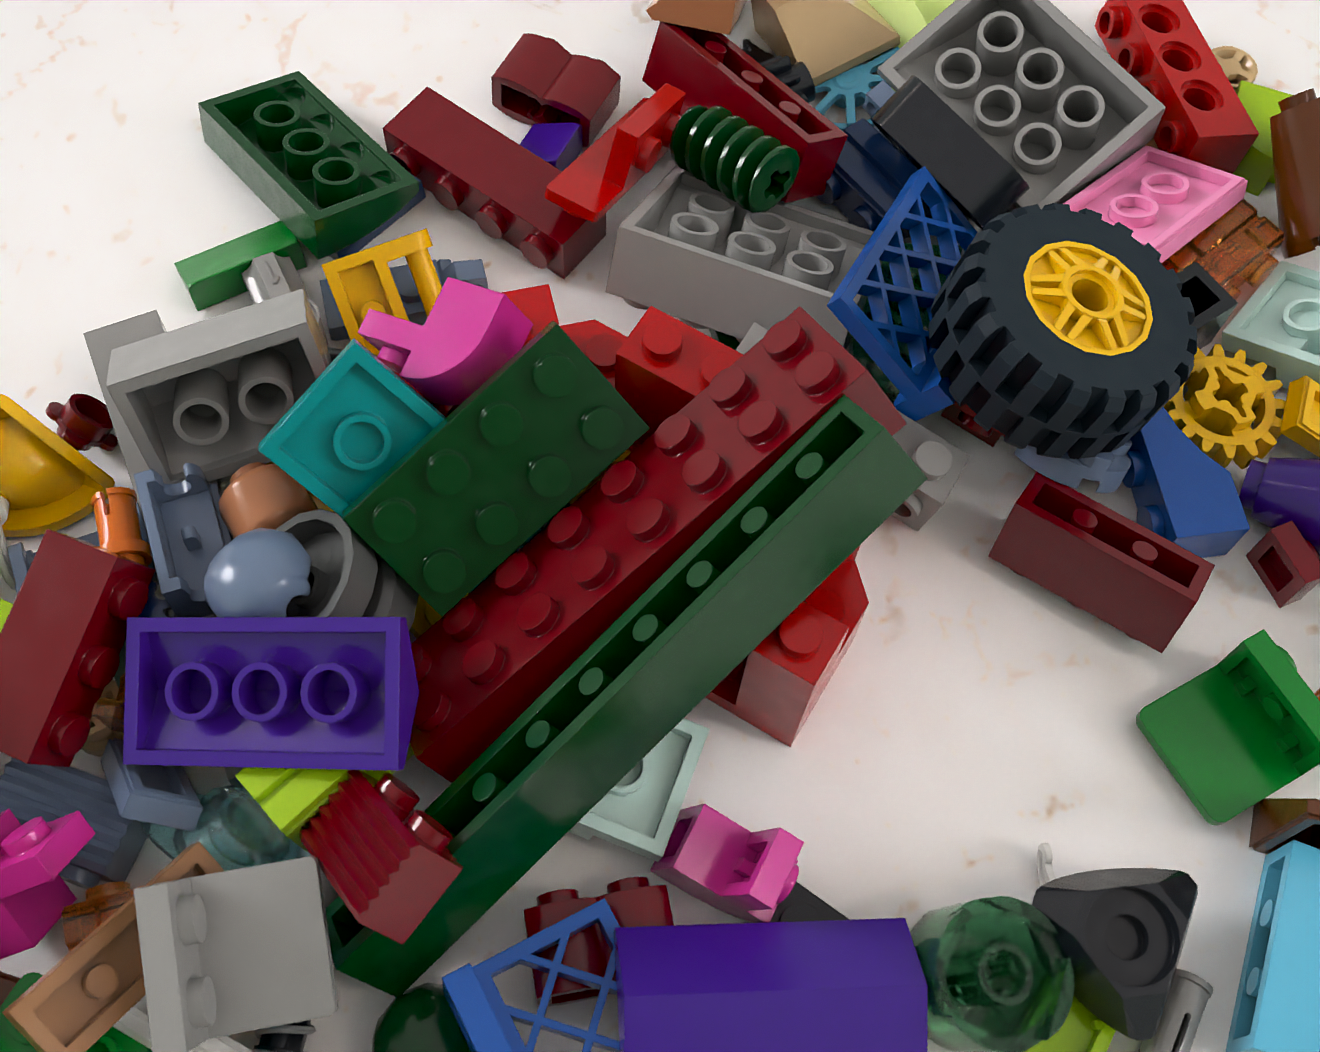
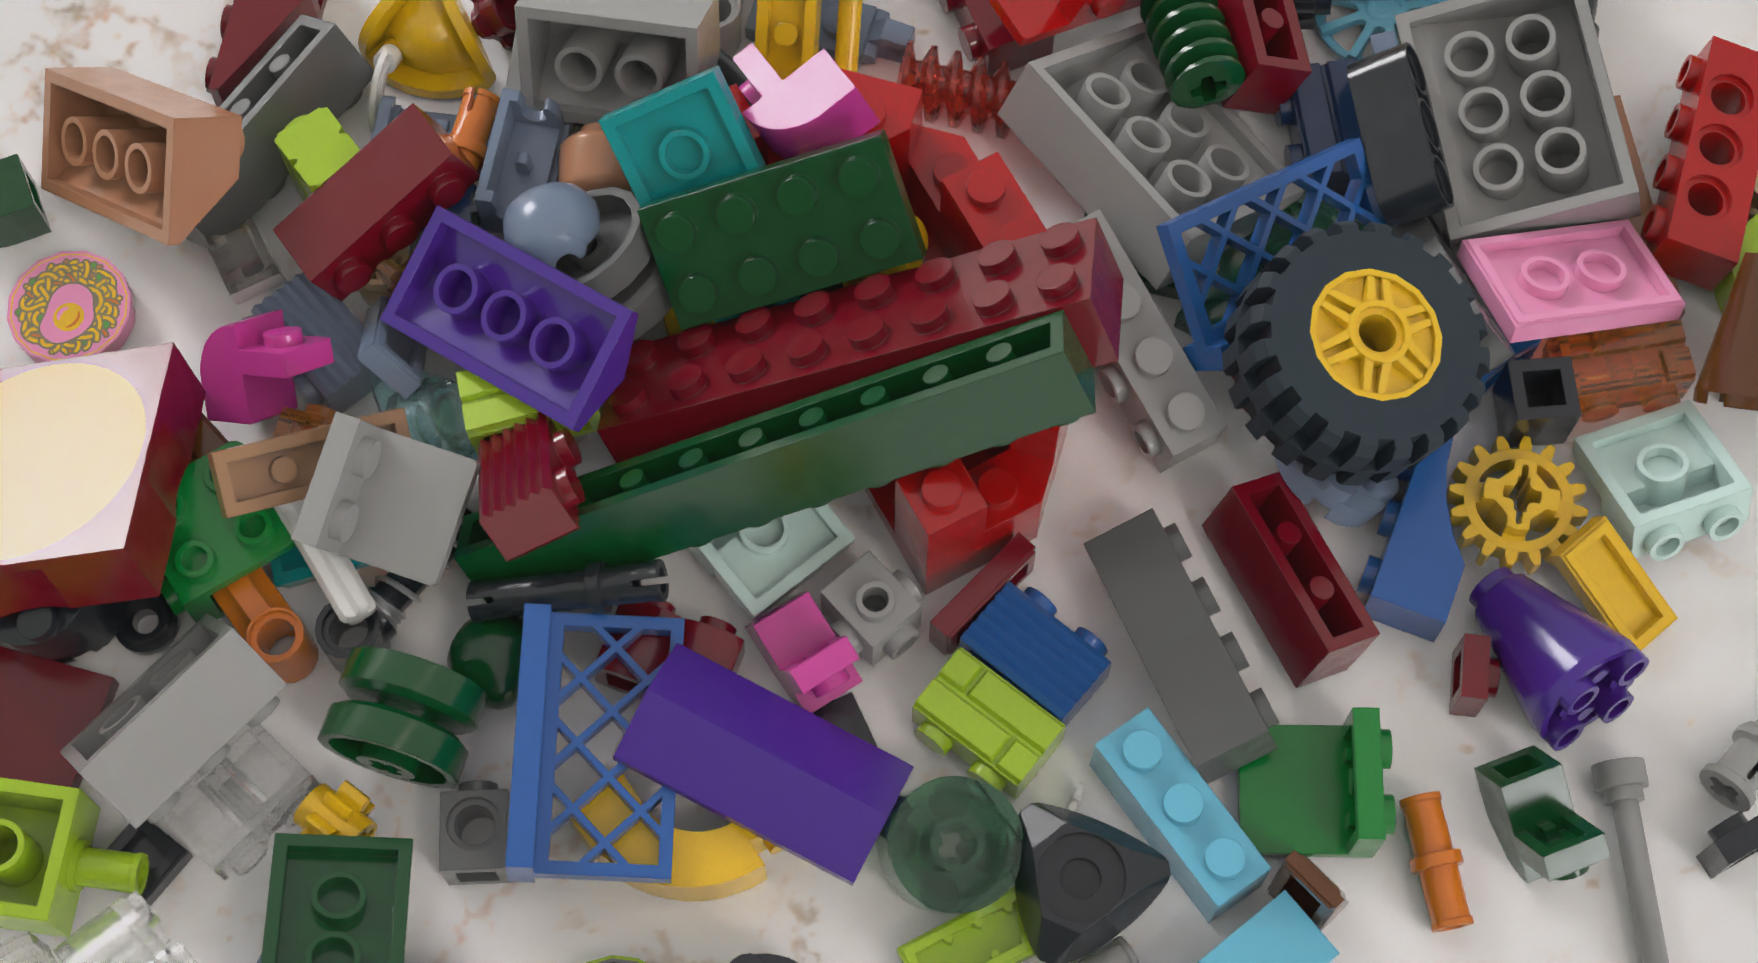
camera: 35 degrees right, 5 degrees up
(498, 920) = (592, 588): none -> black pin
(570, 285) = (958, 89): none -> clear red piece
(768, 784) = (874, 609): none -> light grey brick
(850, 718) = (1009, 565): none -> dark red tile
(932, 748) = (1038, 652): none -> blue brick
(932, 838) = (986, 724): none -> lime brick
(1057, 668) = (1181, 647): none -> dark grey brick
(1152, 823) = (1179, 815): none -> medium azure brick

